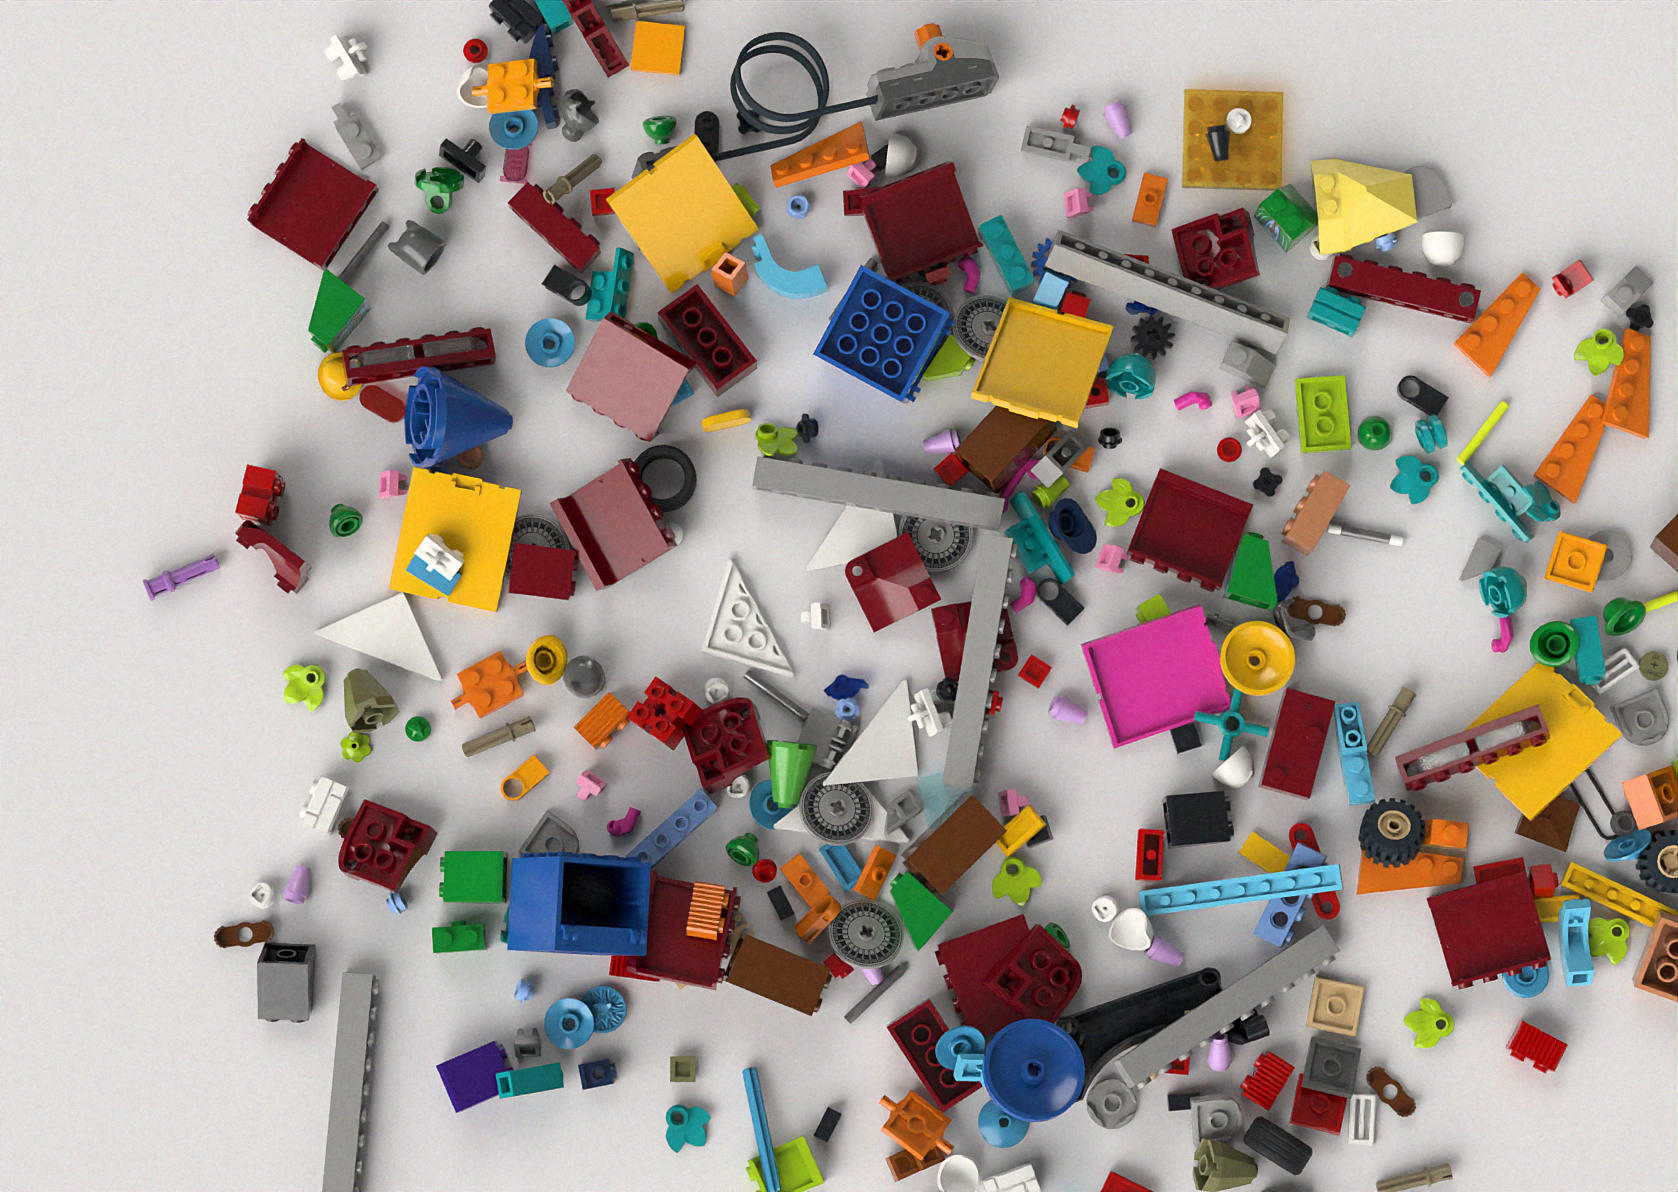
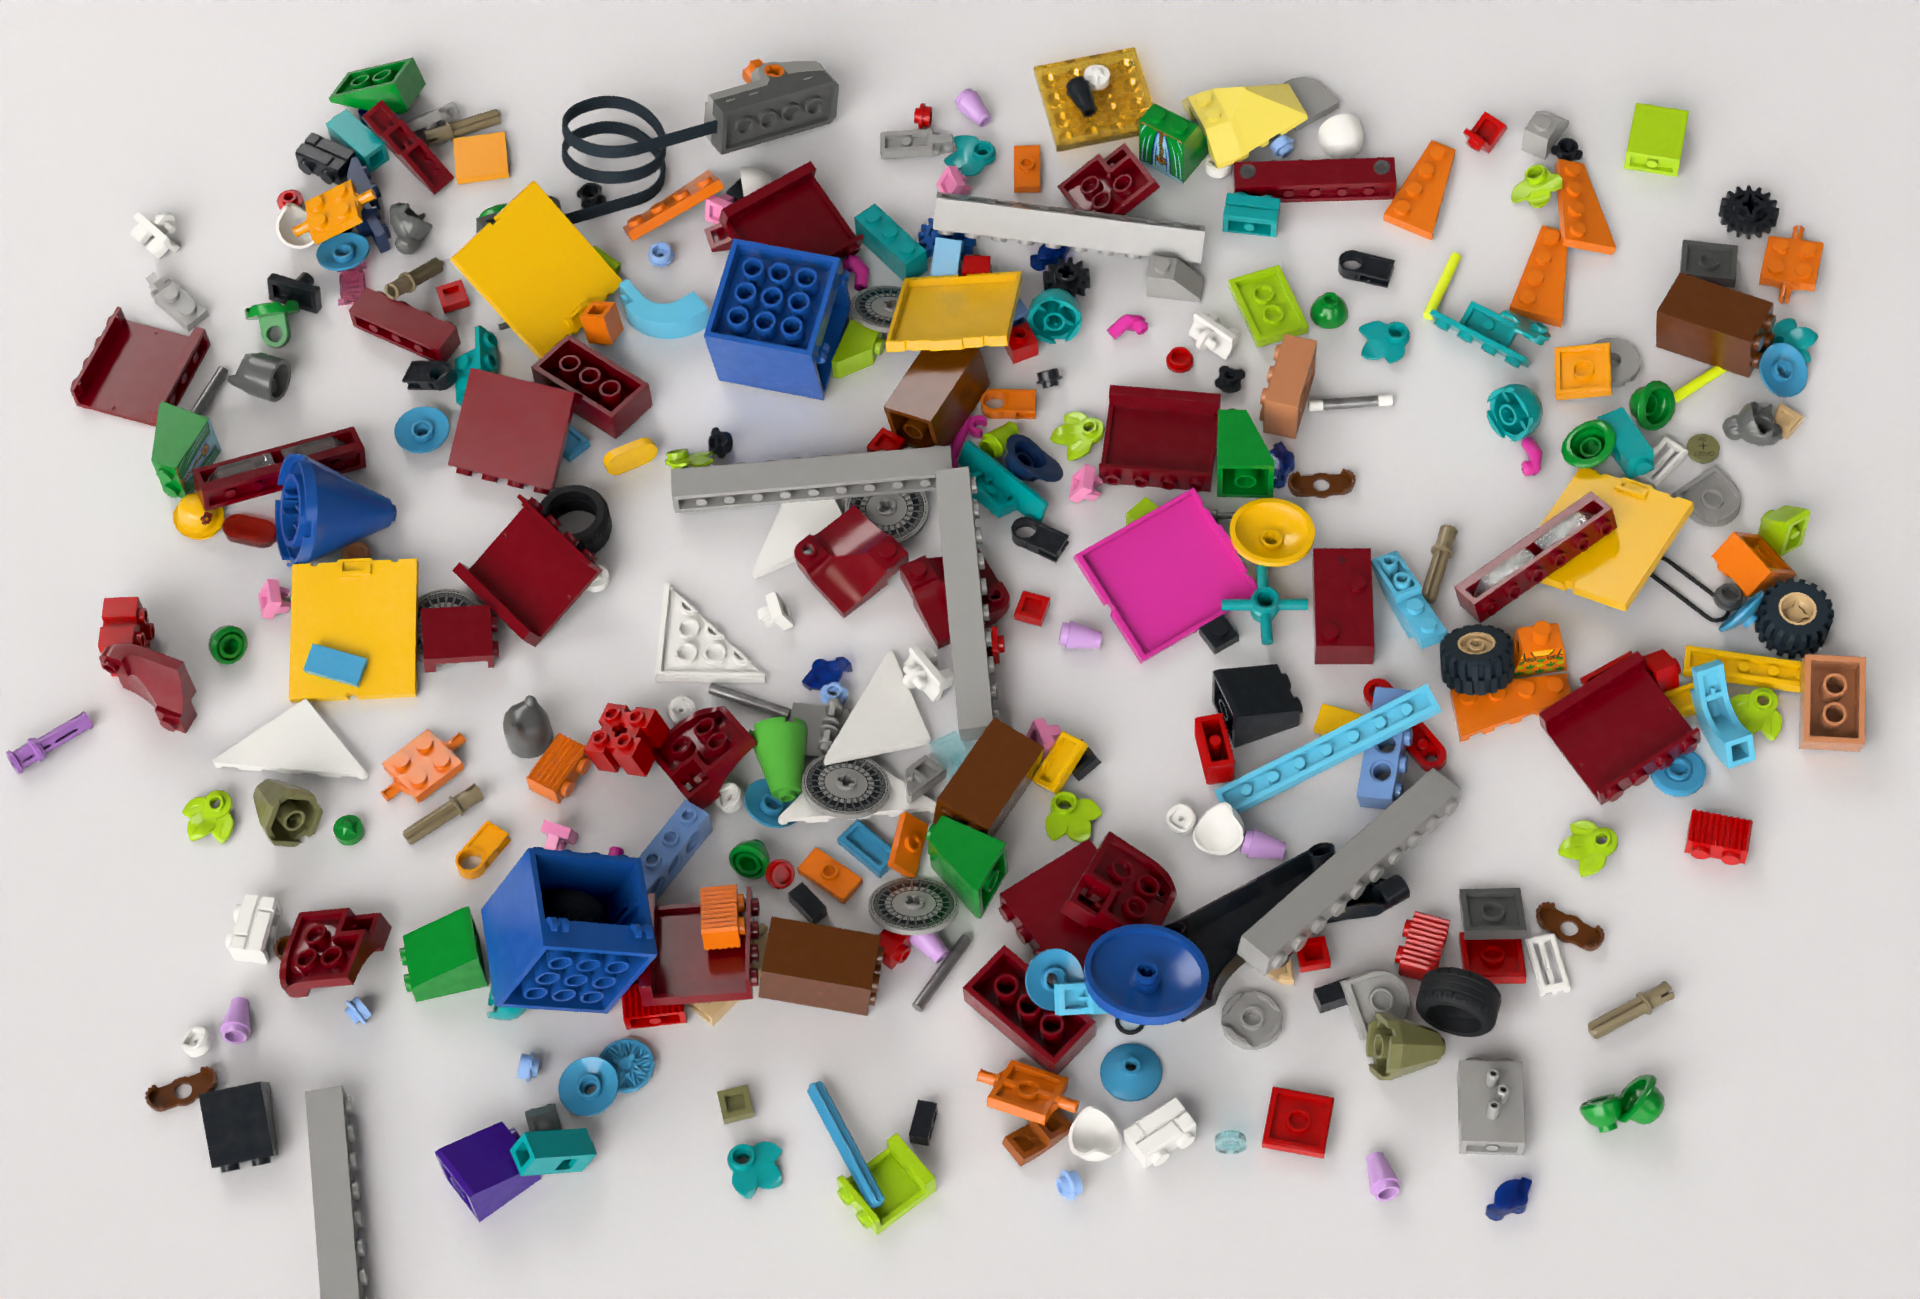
camera: 10 degrees left, 25 degrees down
(356, 754) = (280, 867): lime plant -> none
(440, 556) = (338, 640): white hips -> none
(459, 938) = (438, 1027): green brick -> none
(546, 659) = (480, 719): yellow hat -> none
(589, 1081) = (630, 1142): dark blue brick -> none
(818, 918) = (854, 903): orange piece -> none
(942, 692) = (939, 644): black plate -> none
(943, 442) = (870, 422): lavender cone -> none
(1027, 596) = (1003, 541): dark pink arm -> none
(1059, 459) = (998, 402): light grey slope -> none
(1219, 1052) = (1358, 928): lavender cone -> none
(1236, 769) = (1282, 647): white helmet -> none
(1246, 402) = (1182, 313): bright pink tile -> none
(1302, 632) = (1311, 503): dark grey piece -> none
(1335, 1006) = (1475, 856): tan tile -> none
(1431, 434) = (1387, 293): teal wheel -> none
(1480, 560) = (1479, 392): light grey tile -> none
(1552, 825) = (1648, 618): reddish brown plate -> none

